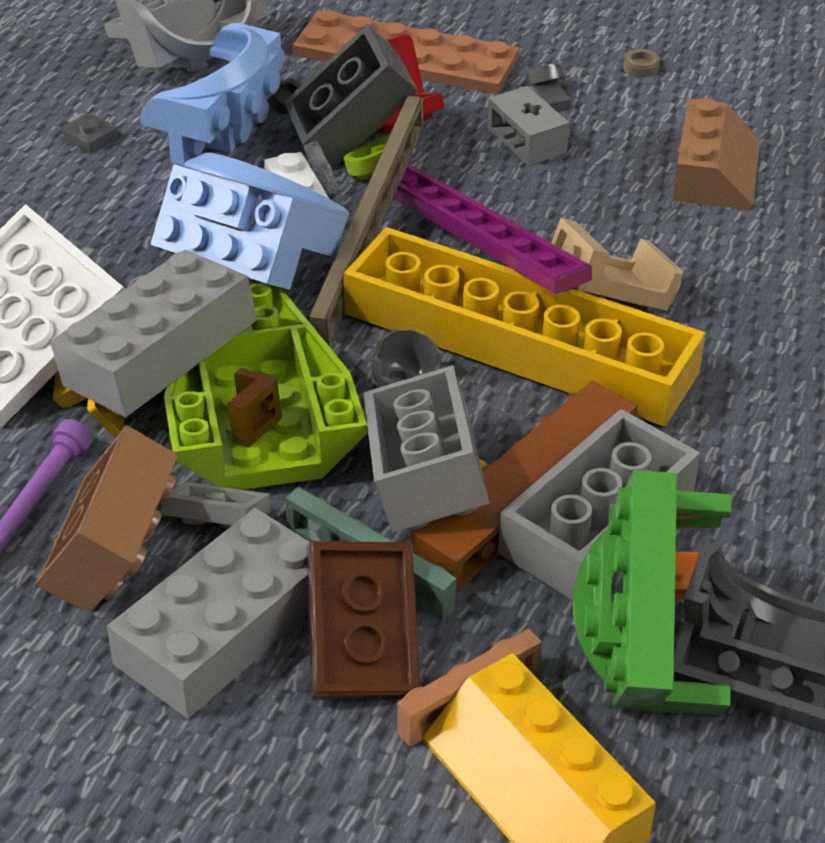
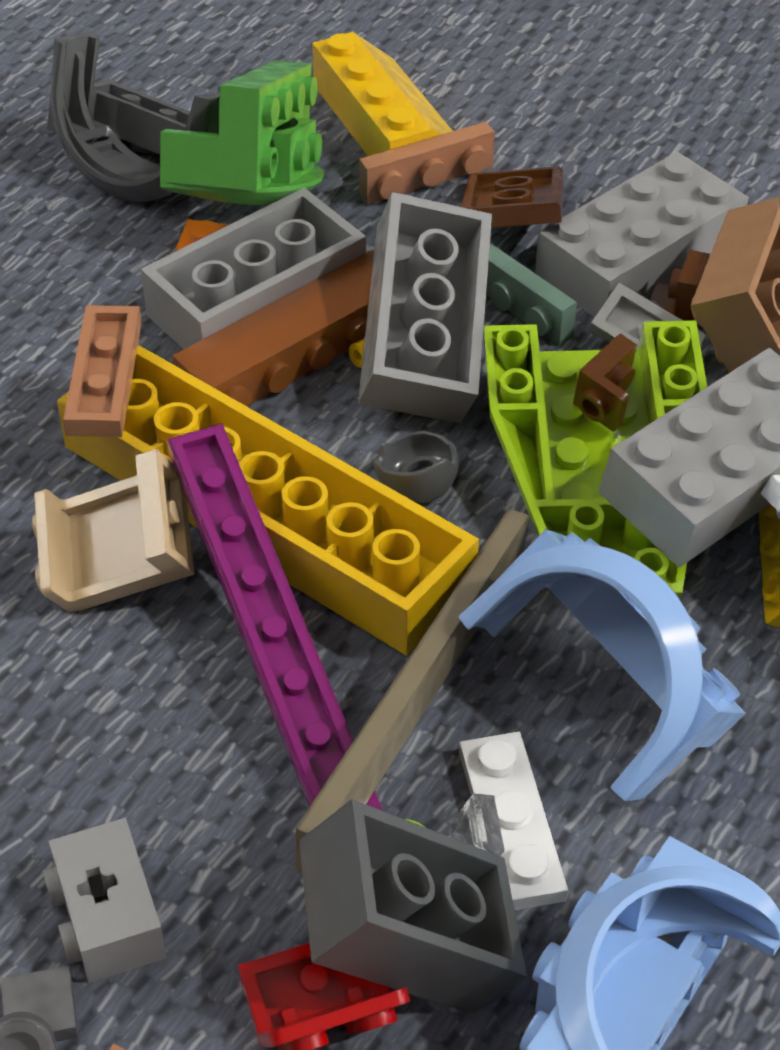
camera: 170 degrees left, 5 degrees up
(177, 536) = (678, 295): none -> reddish brown bracket
(675, 335) = (103, 371): none -> nougat plate

